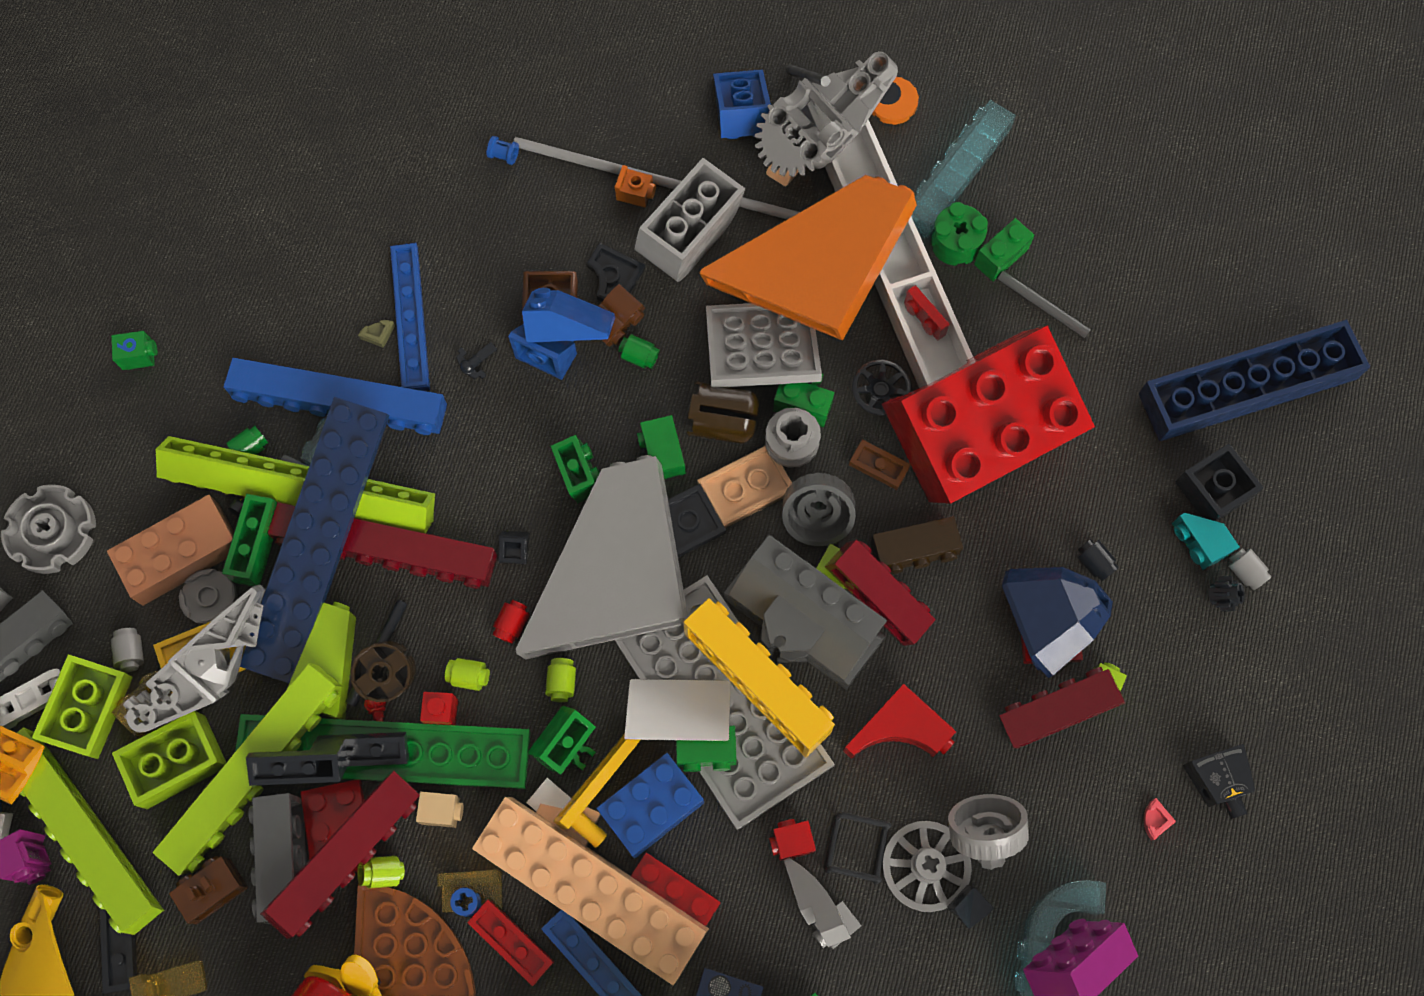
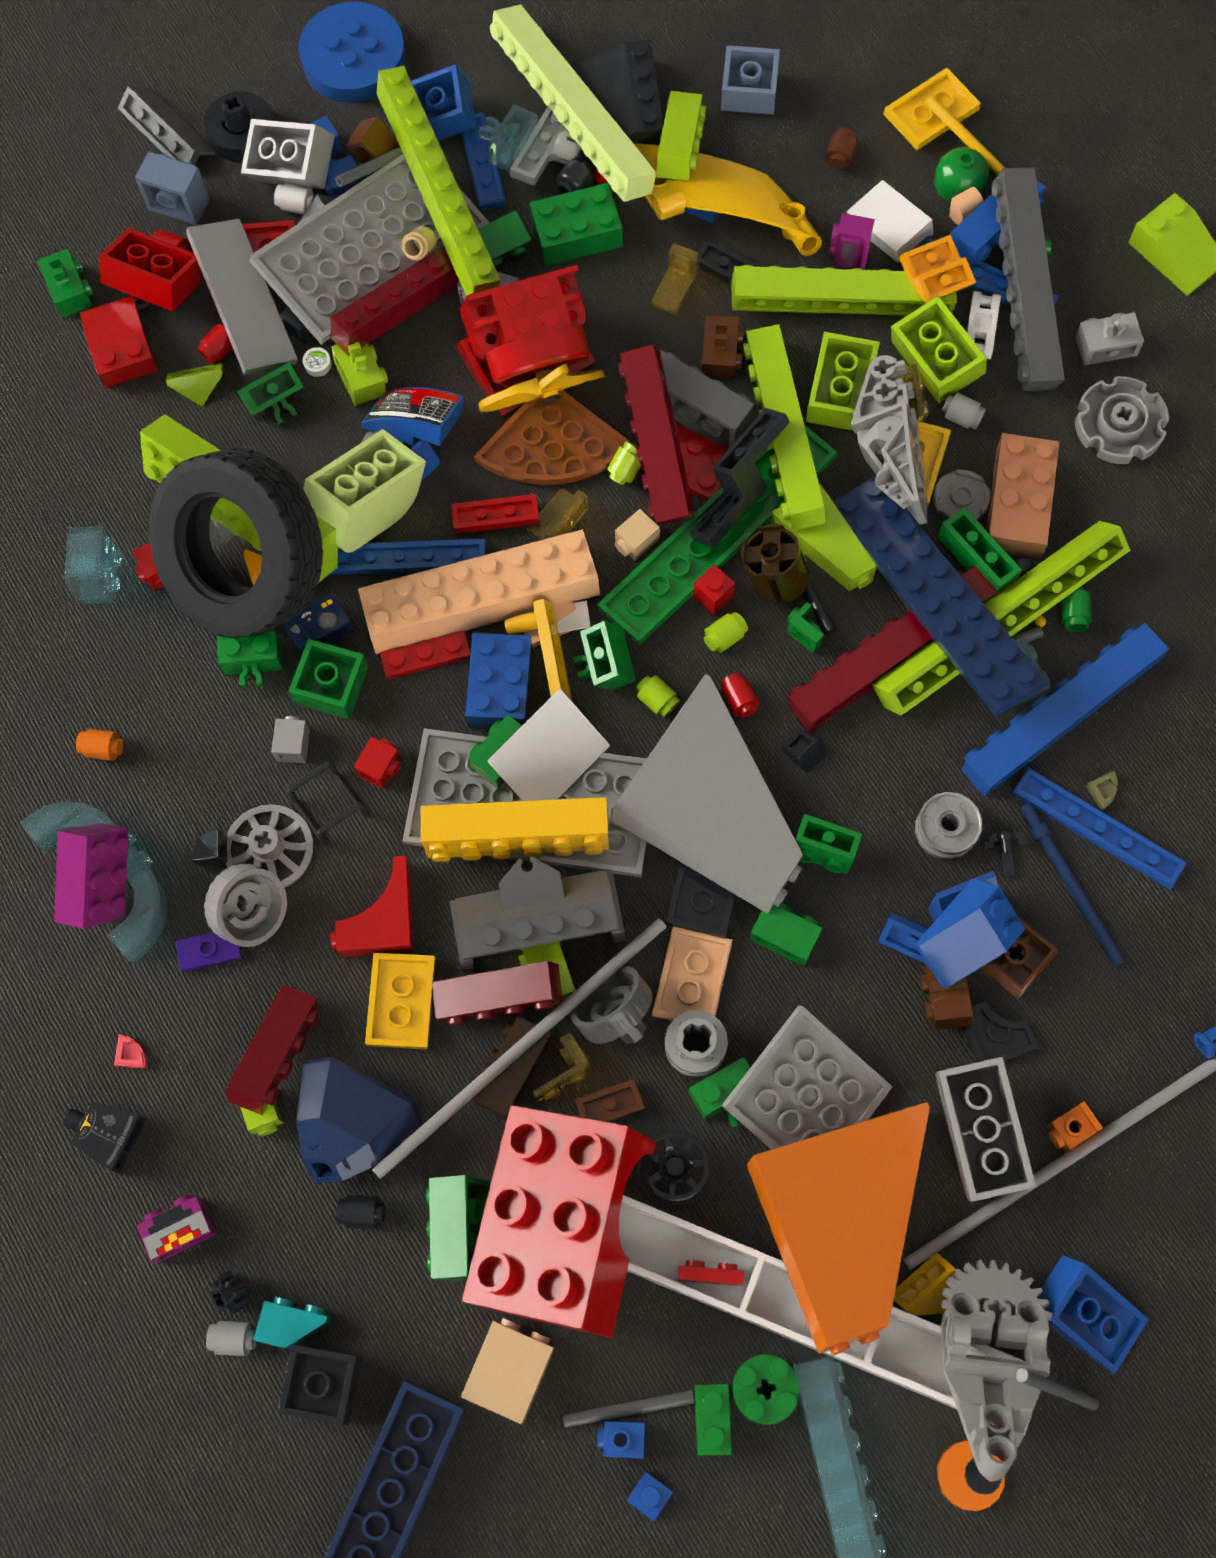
camera: 135 degrees right, 0 degrees up
(419, 615) = (804, 632): none -> green bracket
(445, 346) = (1041, 832): none -> dark blue bar
(458, 896) = (550, 502): blue bush -> none
(486, 391) = (958, 811): none -> light grey wheel
(594, 367) = (902, 935): none -> blue plate
(638, 351) = (896, 990): green brick -> none
(722, 426) = (768, 1002): dark brown cylinder -> none
(764, 940) = (328, 679): none -> green brick
(805, 194) = (924, 1288): none -> yellow slope
(816, 904) = (316, 730): light grey slope -> none
(884, 503) = (571, 1054): none -> clear yellow bracket
(902, 543) = (518, 1049): none -> light grey piece
(943, 661) = (400, 1001): none -> yellow plate
(1045, 839) = (205, 952): none -> dark purple plate
(1049, 481) = (454, 1224): none -> brick
(1065, 289) = (622, 1439): none -> blue brick
(1077, 253) = (649, 1496): none -> blue plate
(1104, 382) = (508, 1371): none -> tan brick
(1227, 668) = (176, 1228): none -> brick

